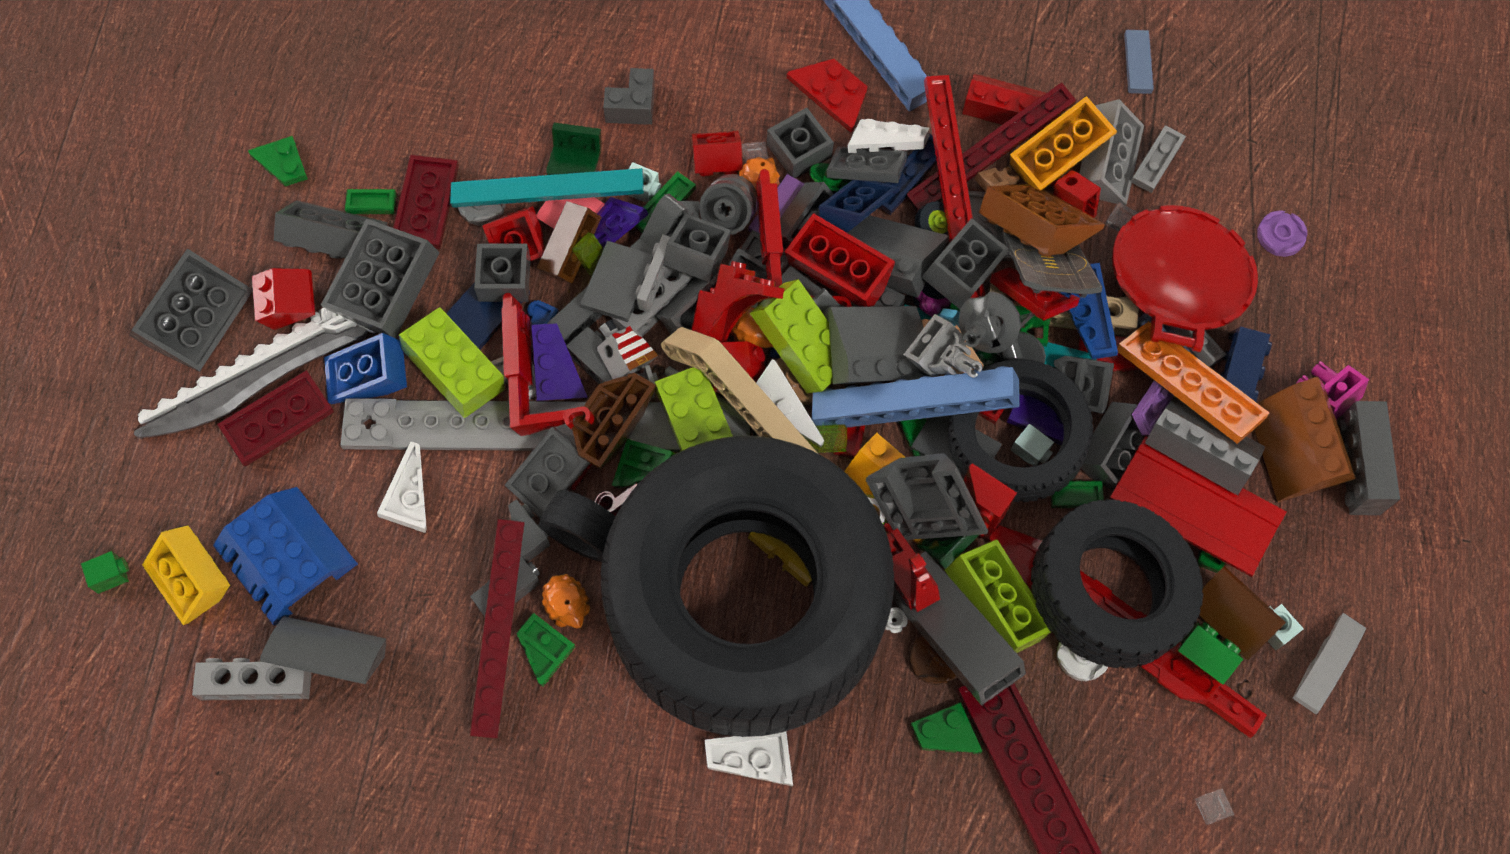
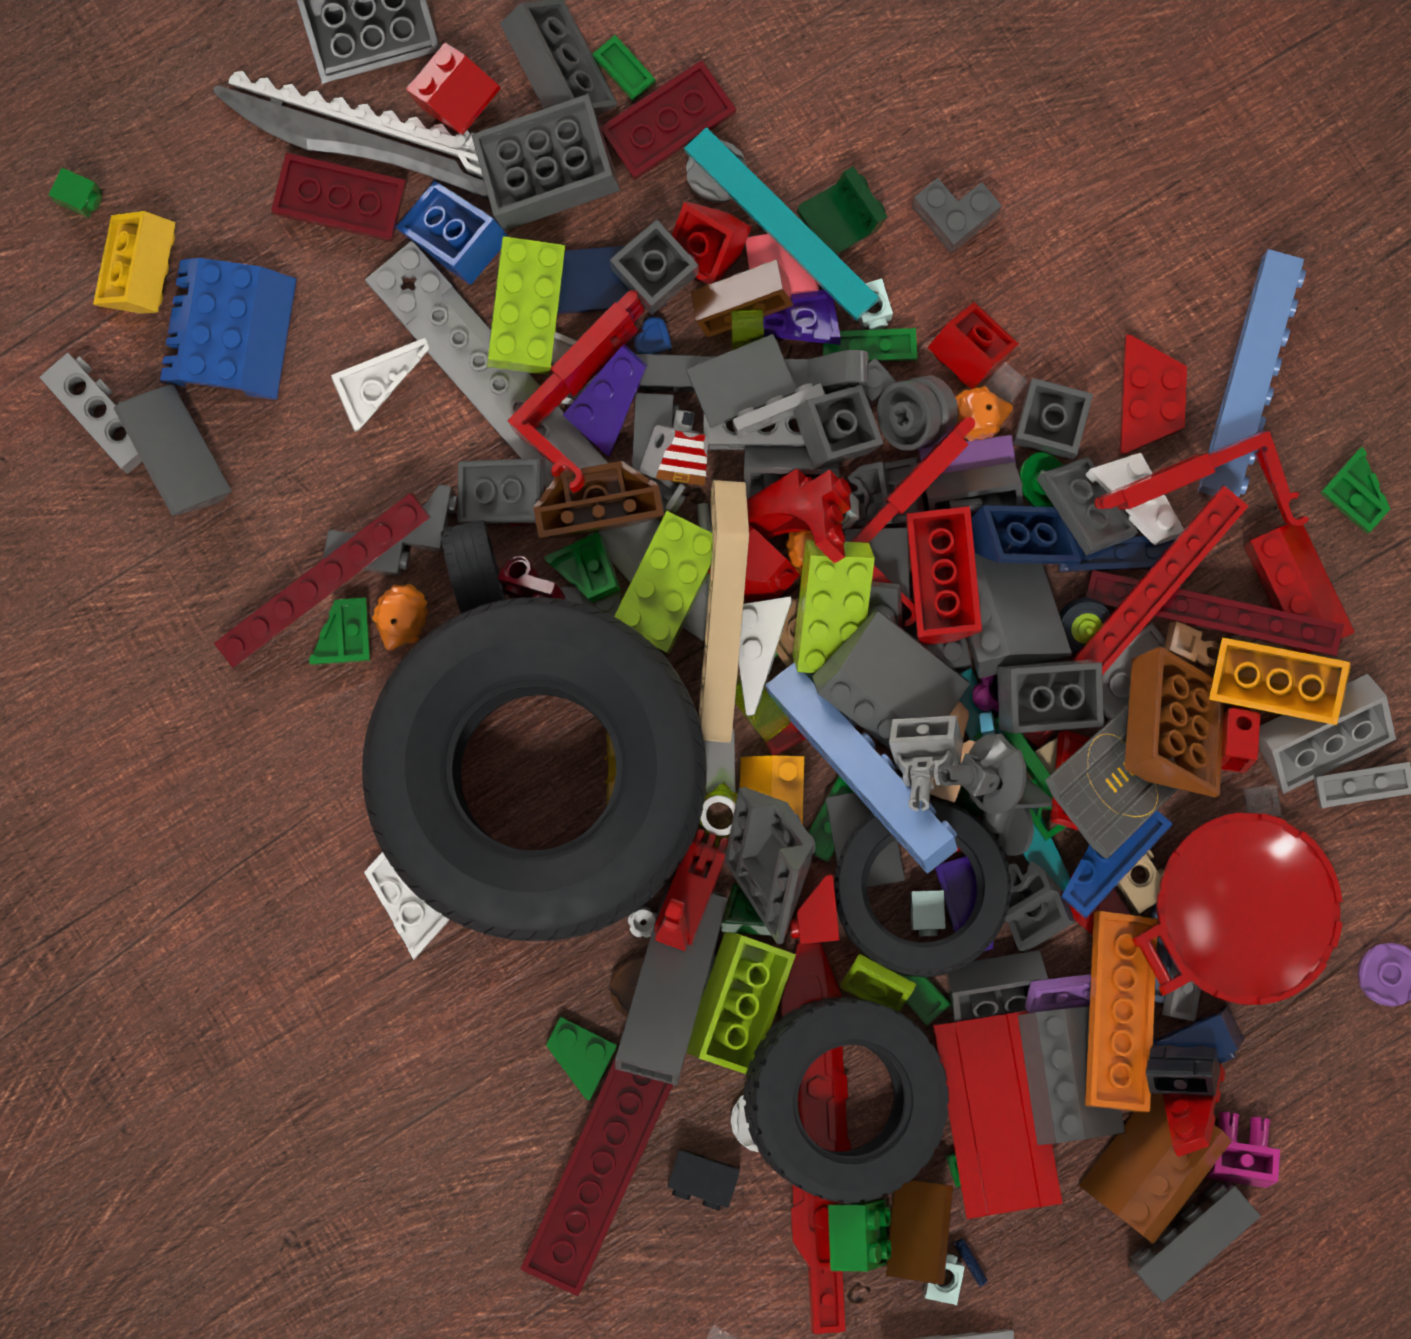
camera: 55 degrees right, 15 degrees up
(898, 91) = (1202, 465): none -> red hinge
(985, 34) = (1357, 493): none -> green wing
(1053, 505) = (877, 984): none -> lime tile
(1093, 720) = (703, 1179): none -> black brick
(1260, 371) = (1183, 1070): none -> black brick
(1274, 602) = (971, 1262): none -> dark blue piece
(1288, 385) = (1191, 1119): none -> red wing

